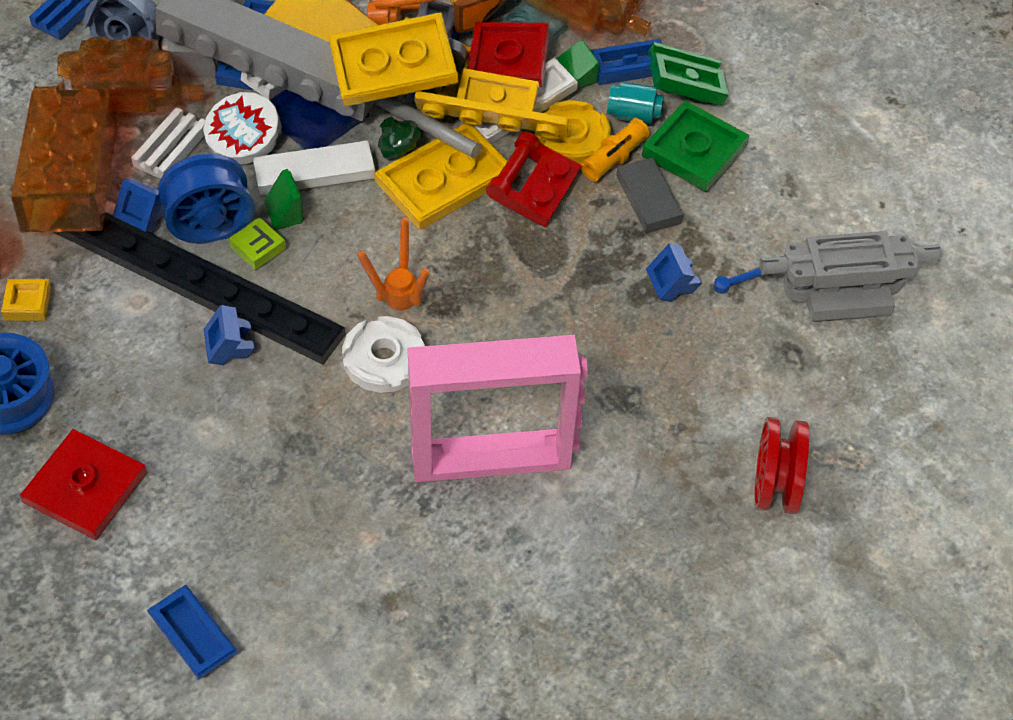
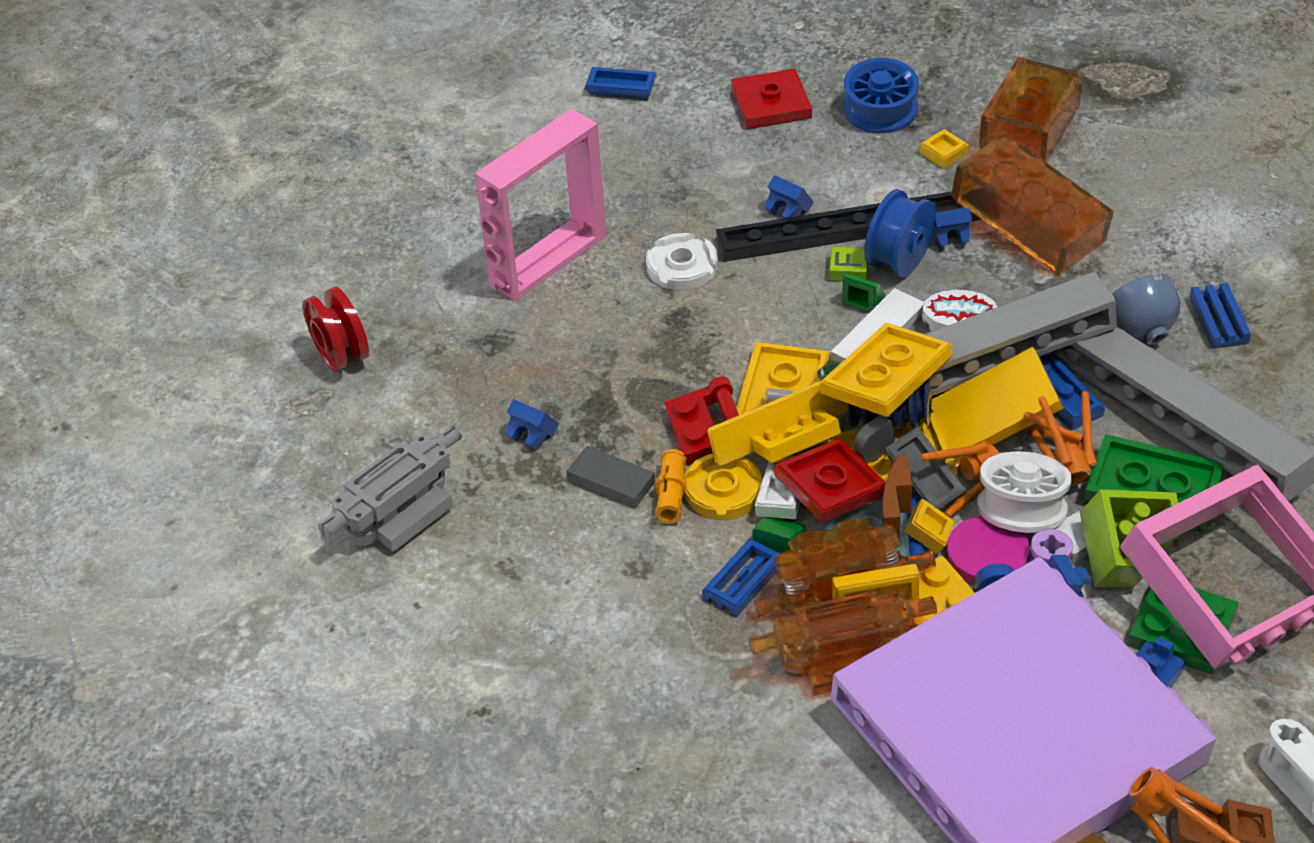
camera: 145 degrees right, 10 degrees down
(132, 69) = (1088, 249): clear orange piece -> none
(165, 141) = (978, 265): white tile -> none
(400, 285) = (715, 290): orange plant -> none
(634, 101) = (693, 528): teal brick -> none
(687, 74) = (673, 577): green plate -> none
(695, 145) = (609, 531): green plate -> none
(722, 283) = (492, 454): blue hinge -> none

